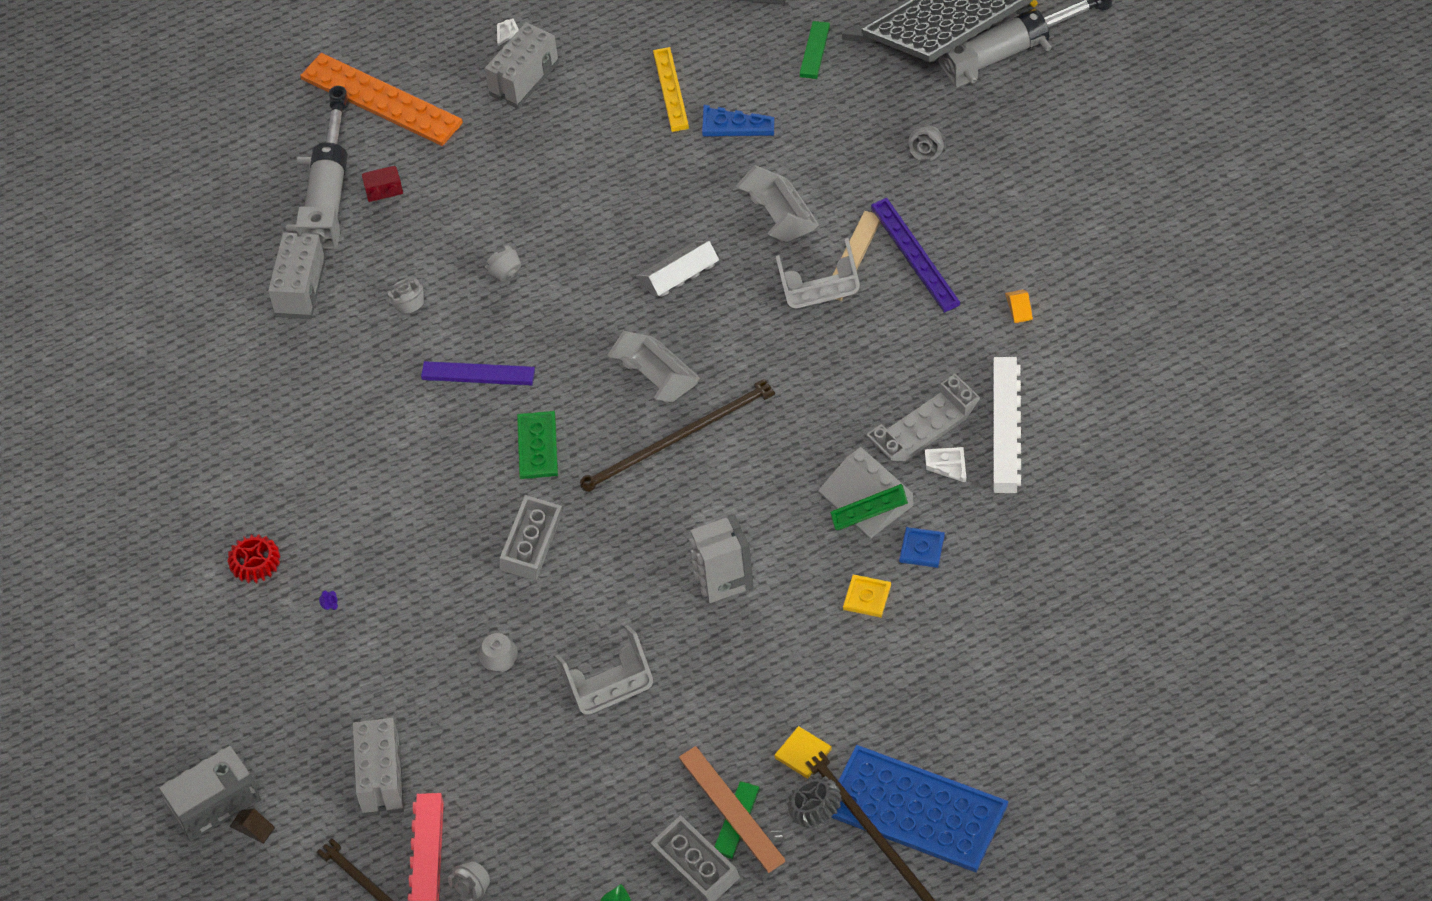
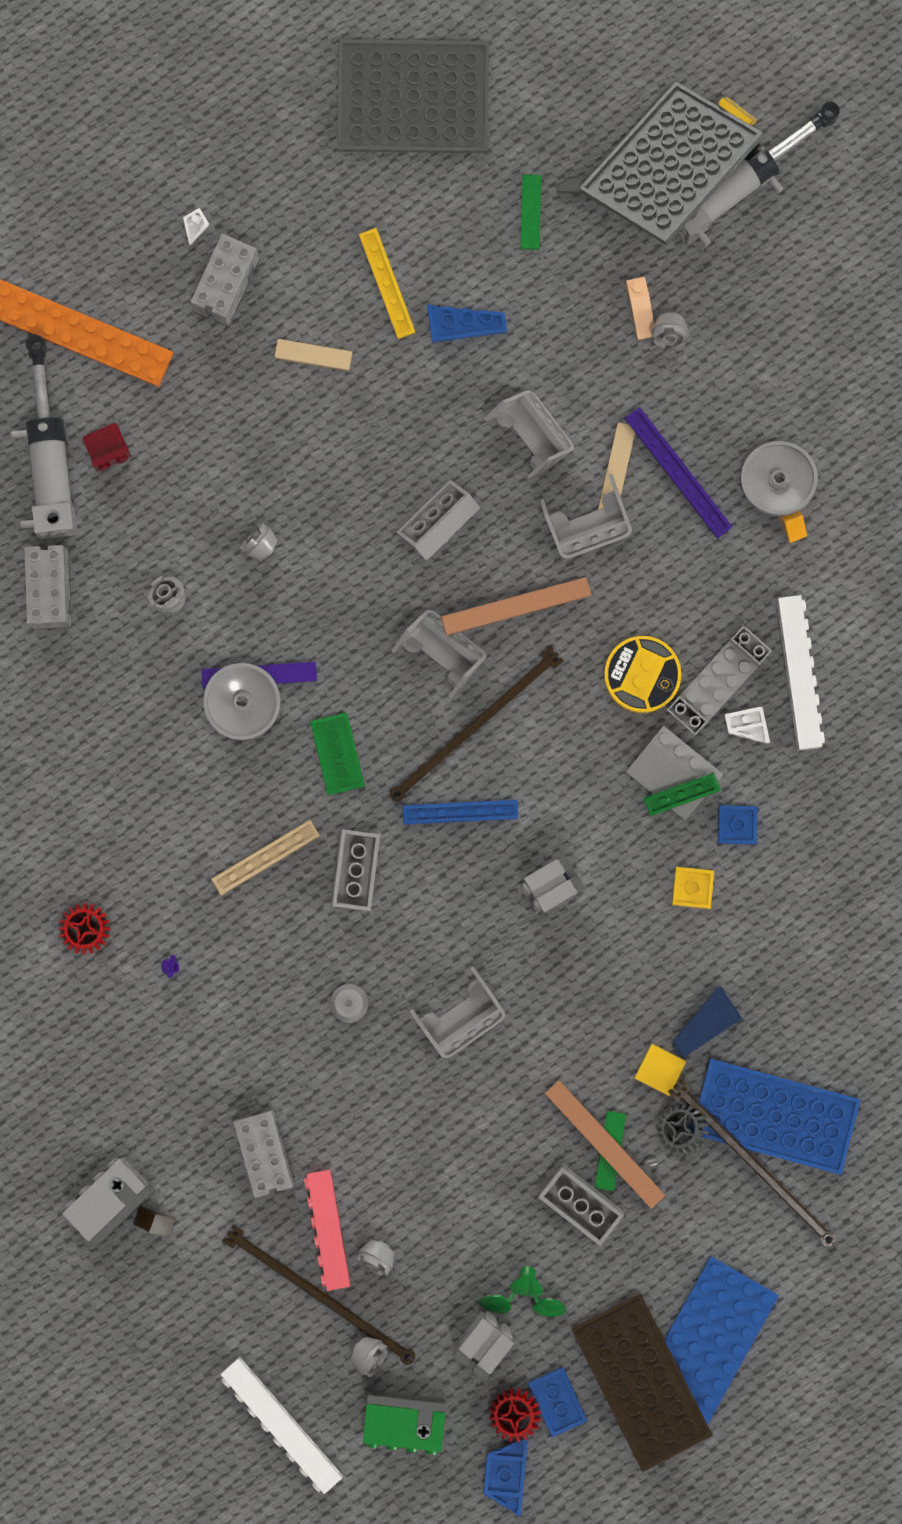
camera: 15 degrees left, 30 degrees up
(446, 522) = (265, 857): none -> tan tile
(455, 386) = (242, 701): none -> light grey dish
(590, 134) = (313, 355): none -> tan tile
(646, 505) = (460, 812): none -> blue tile
(736, 339) = (516, 606): none -> nougat tile
(848, 409) = (642, 674): none -> piece
(858, 713) = (709, 1021): none -> dark blue slope
(902, 124) = (640, 307): none -> light nougat slope
(1011, 265) = (779, 478): none -> light grey dish

